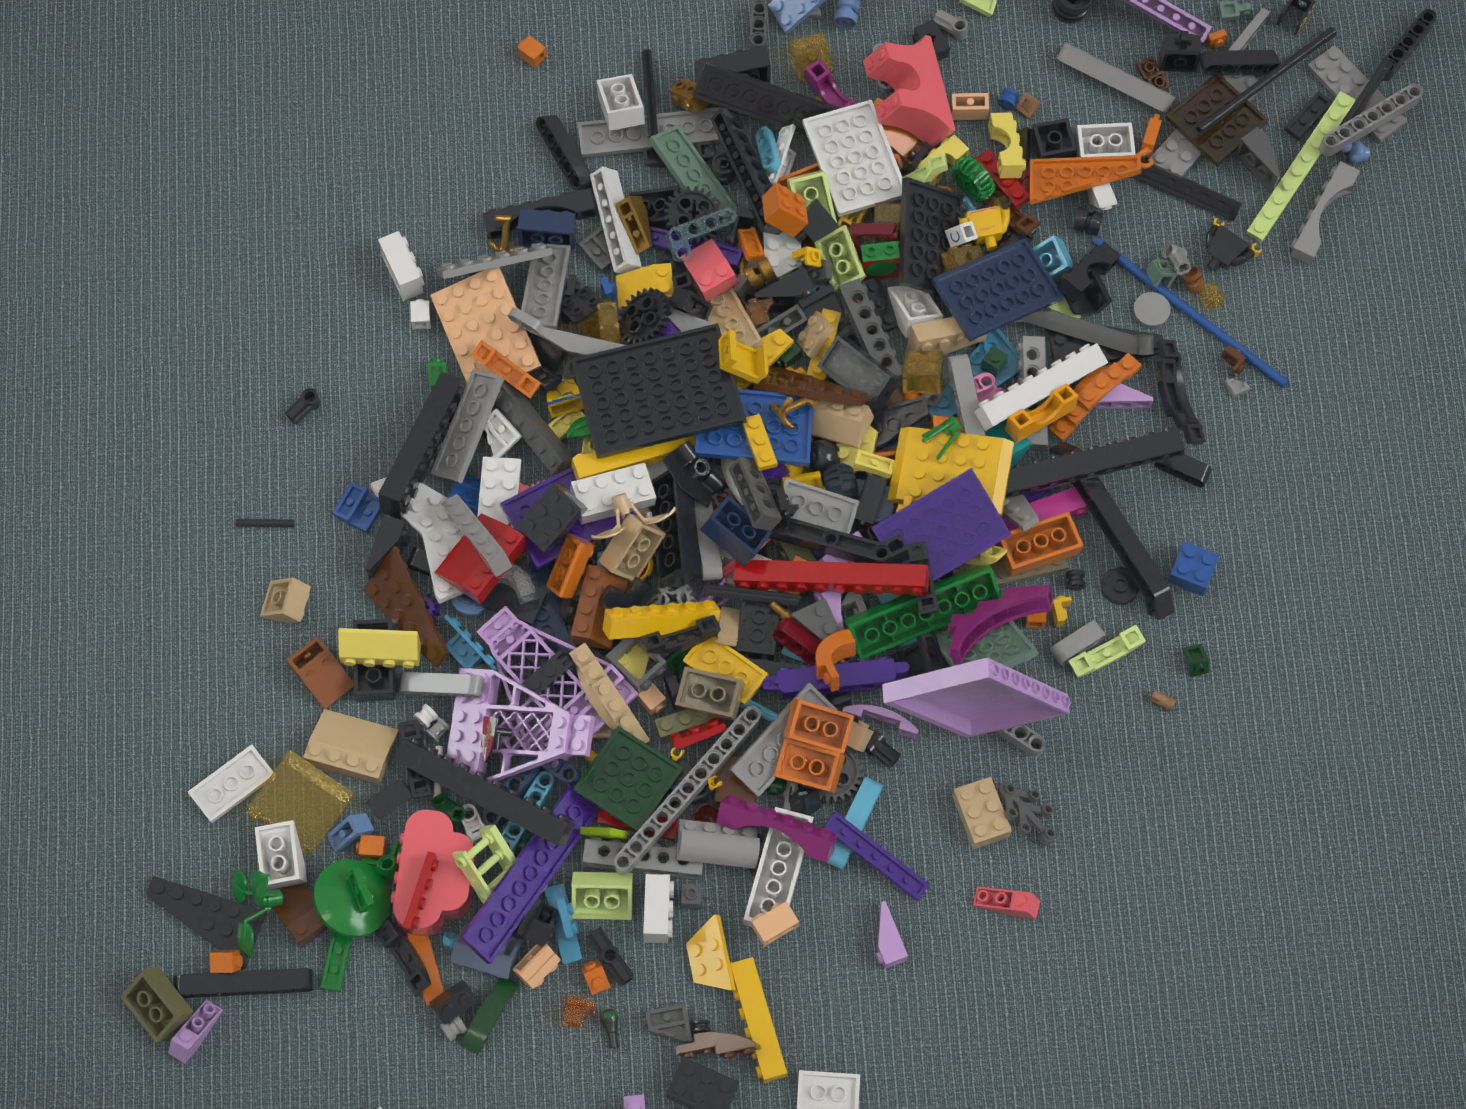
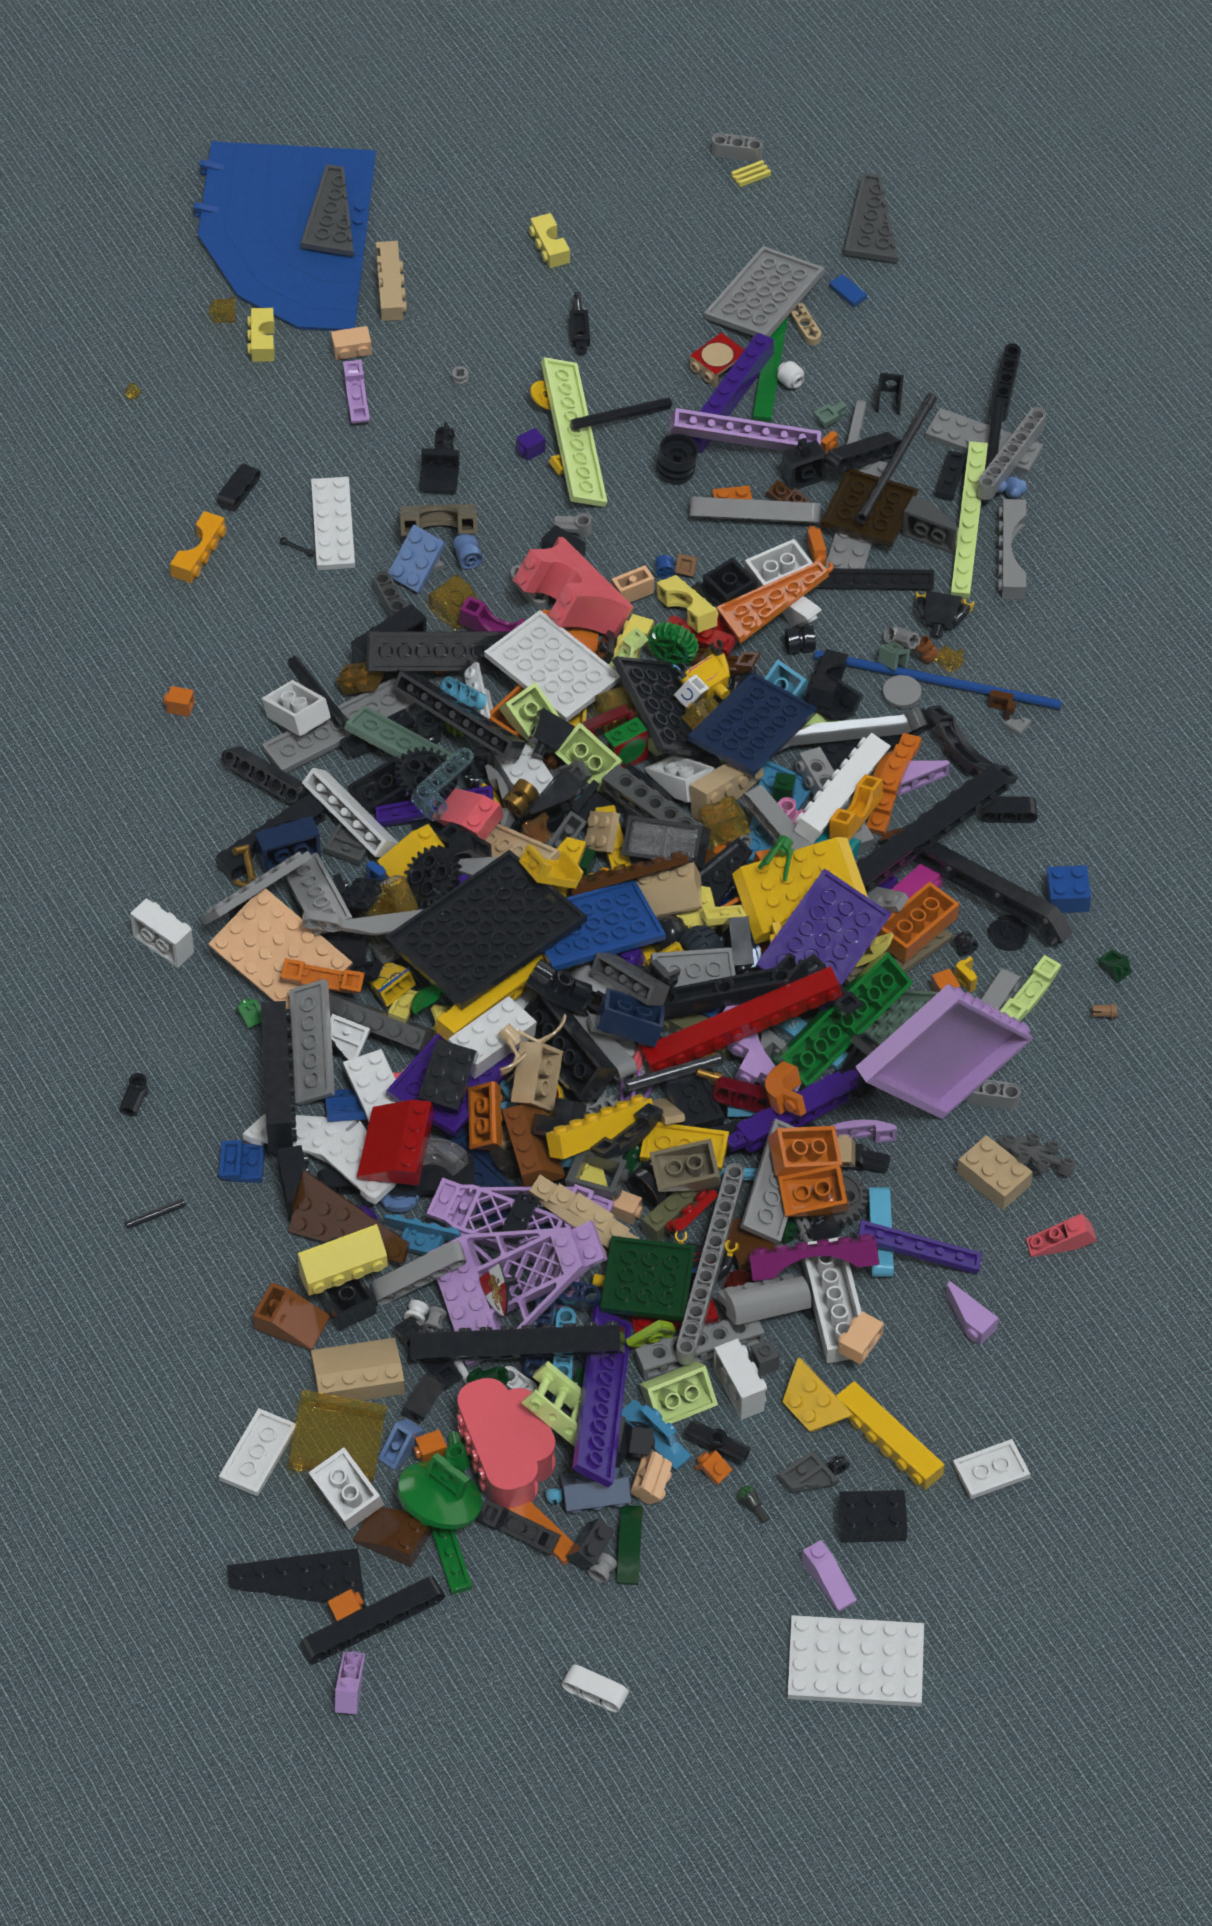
camera: 25 degrees left, 15 degrees down
(156, 1004) = (300, 1669): olive brick -> none
(268, 899) = (349, 1509): green plant -> none
(285, 600) = (217, 1270): tan slope -> none
(418, 901) = (508, 1443): red plate -> none
(420, 314) = (204, 969): white brick -> none
(477, 534) = (411, 1124): light grey arch -> none
(576, 1010) = (712, 1500): clear orange brick -> none
(636, 222) = (372, 805): pearl gold slope -> none
(724, 1043) = (872, 1463): slope -> none
(750, 244) = (496, 777): orange plate -> none
(759, 443) = (609, 934): yellow plate -> none
(784, 209) = (517, 727): orange brick -> none
(787, 406) = (619, 891): pearl gold piece -> none
(808, 256) = (556, 764): yellow bracket -> none
(817, 619) = (748, 1066): dark grey wing -> none
(990, 614) = (910, 993): magenta arch -> none
(1106, 53) = (740, 492): none -> orange plate

